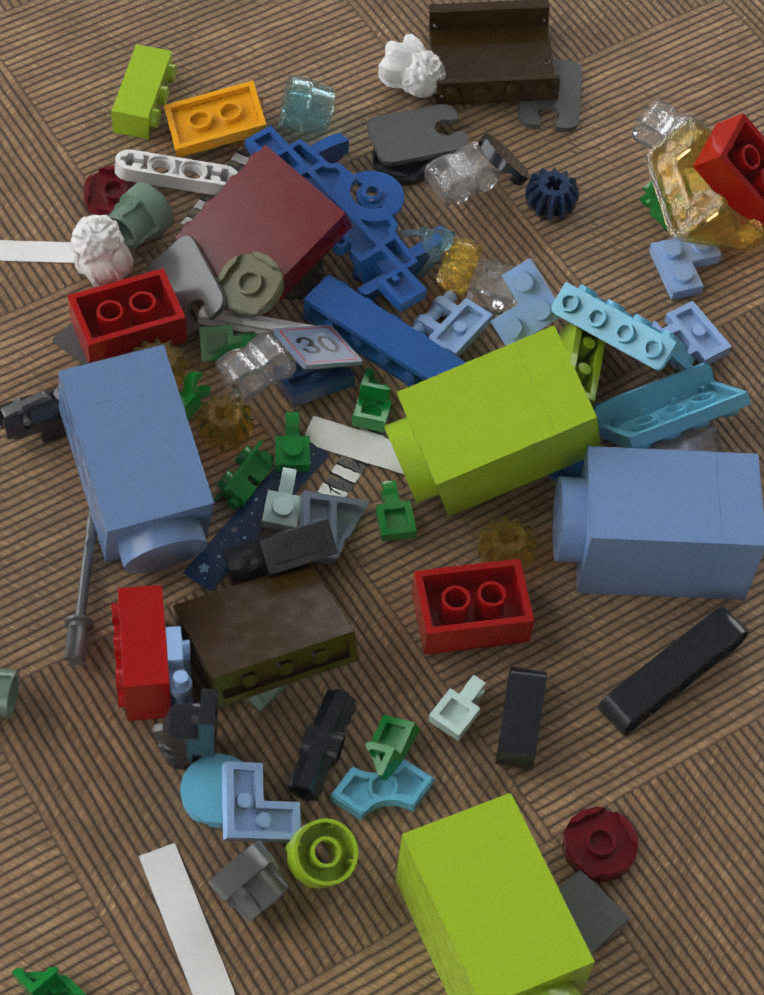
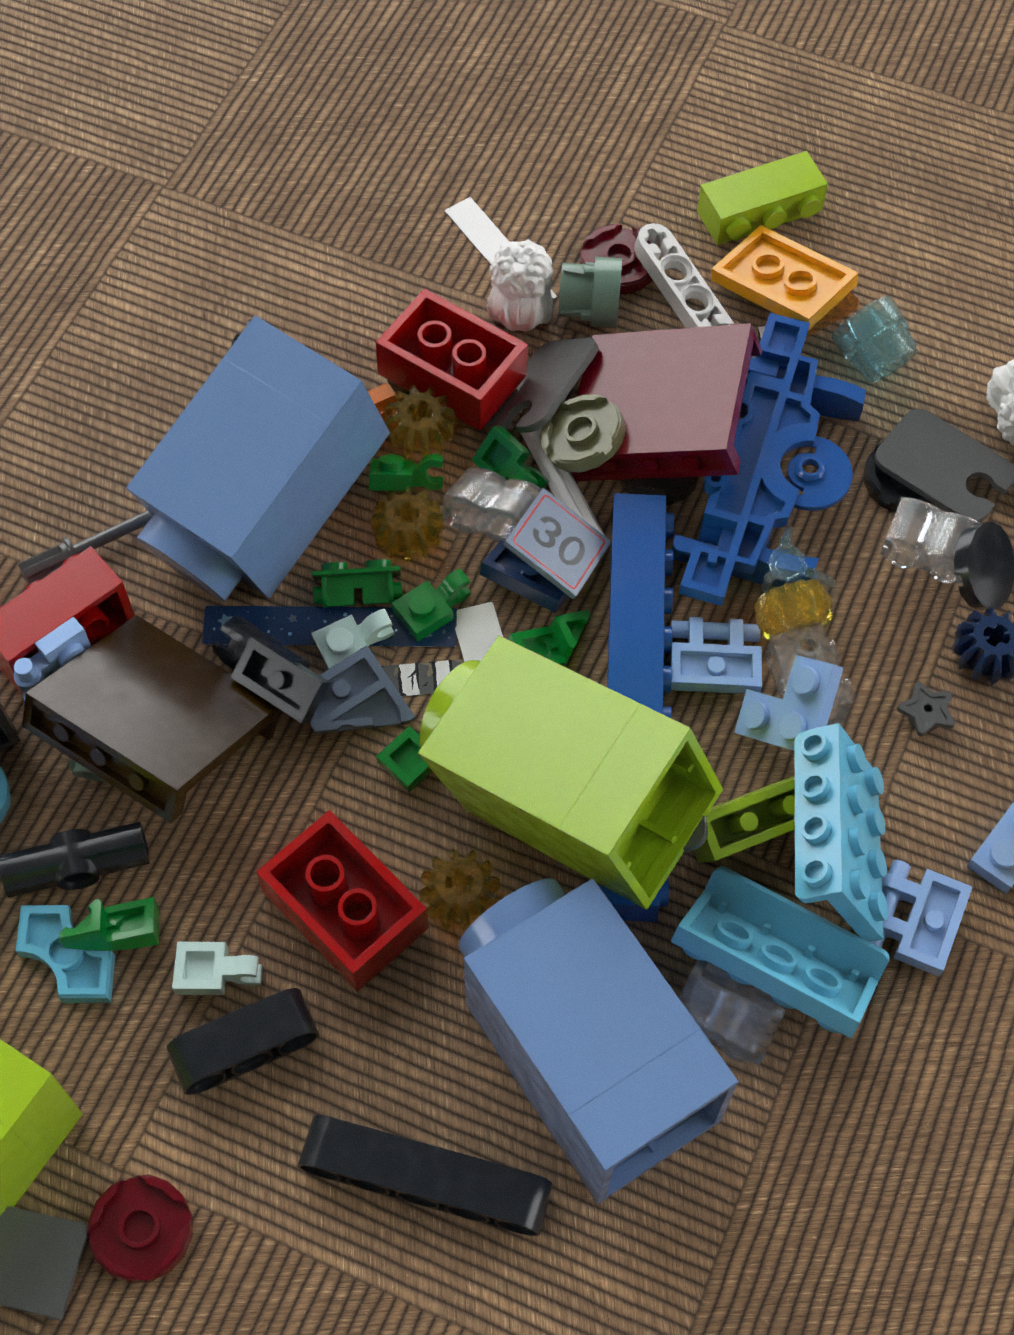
camera: 60 degrees right, 5 degrees up
(564, 258) = (923, 720): none -> dark grey plate

